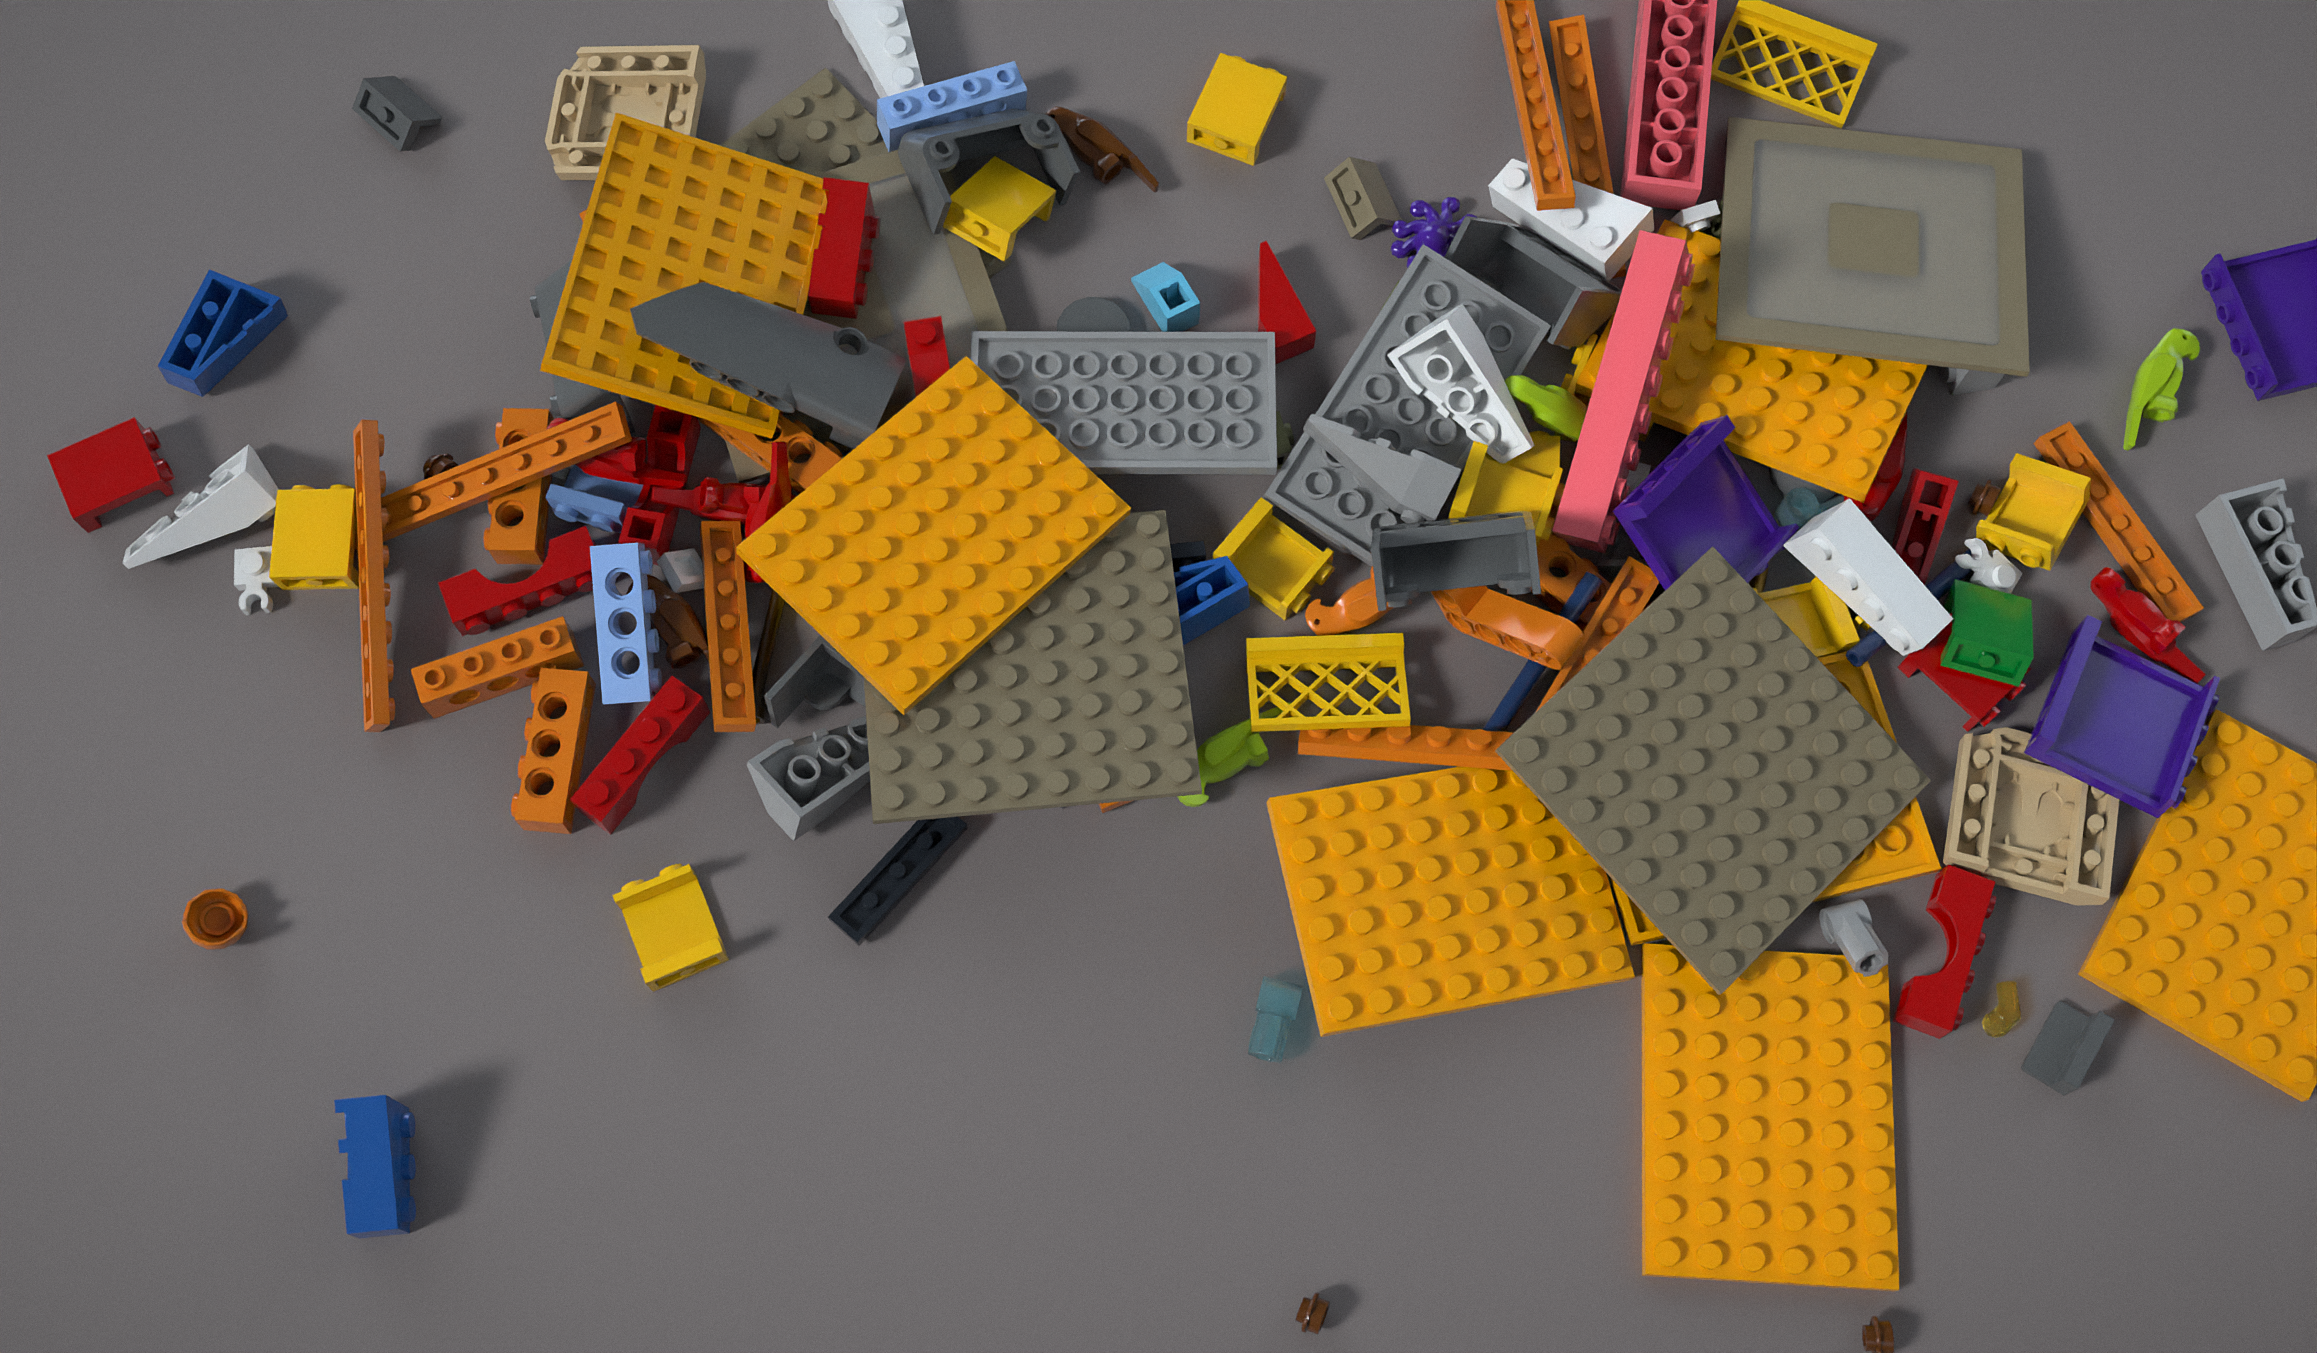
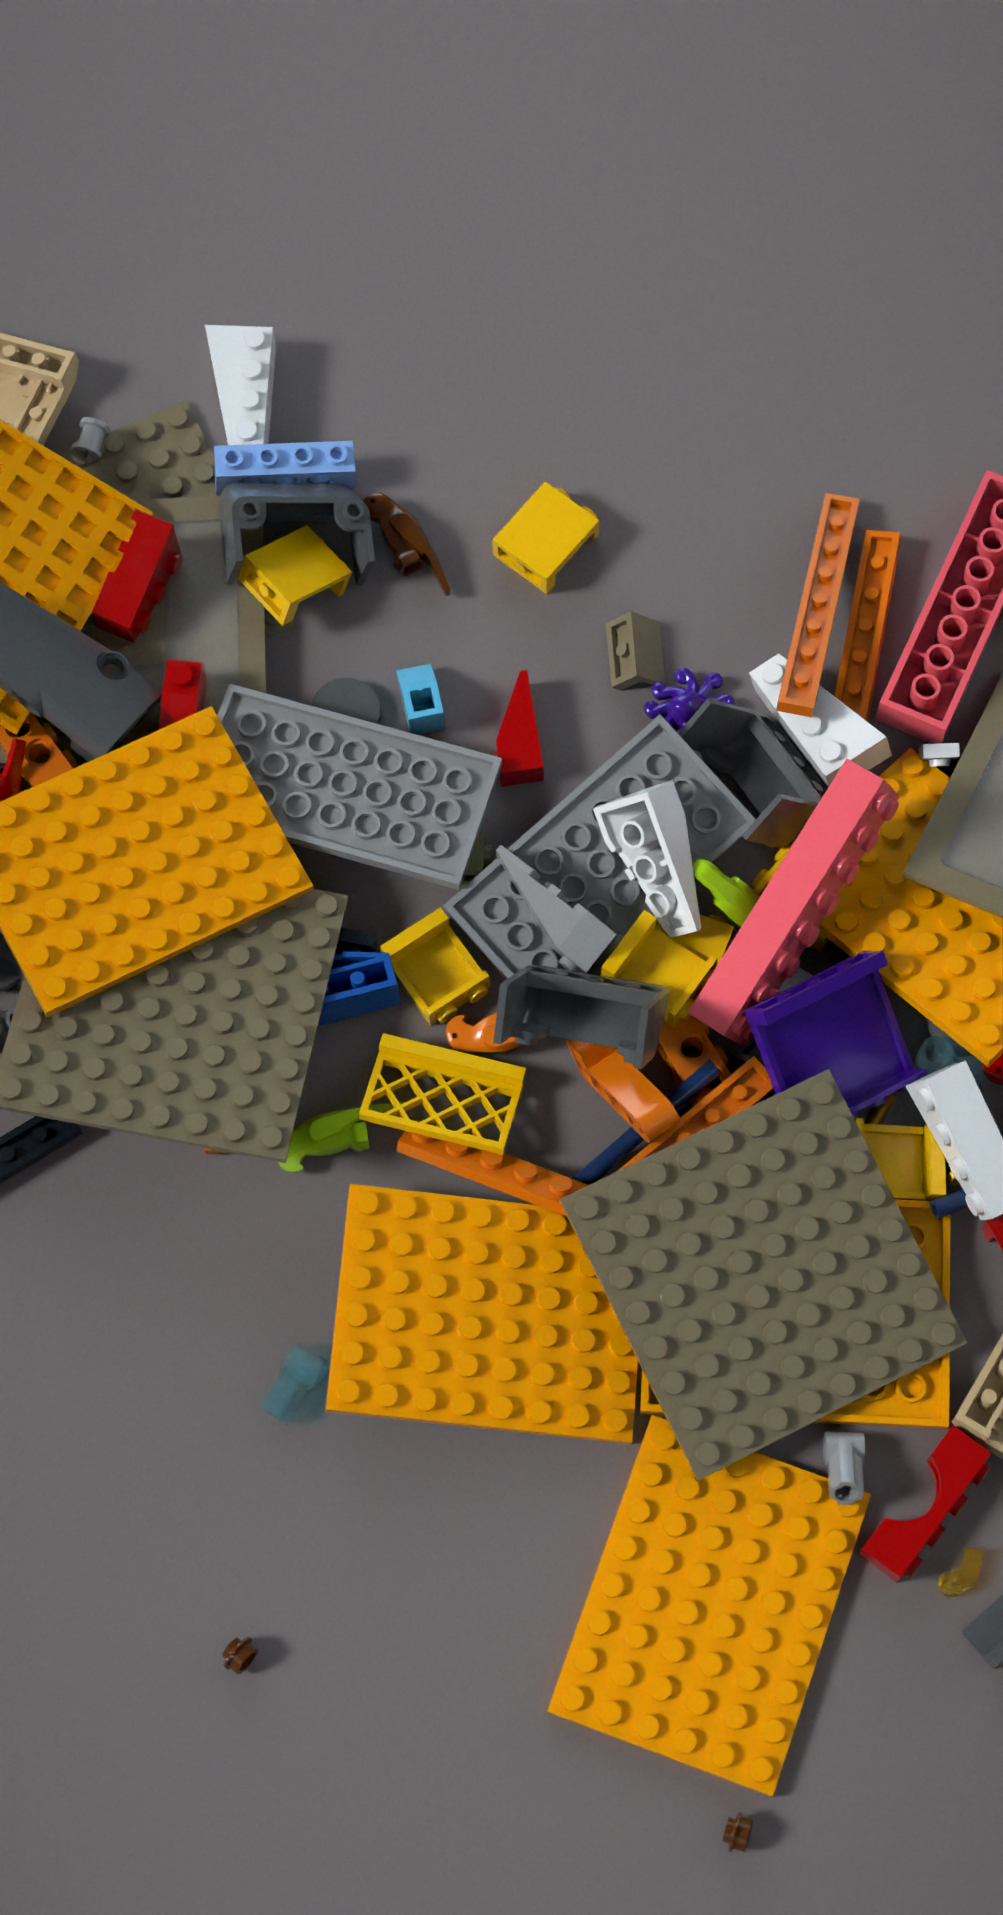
camera: 20 degrees right, 0 degrees up
(742, 128) = (90, 440): none -> light grey bush

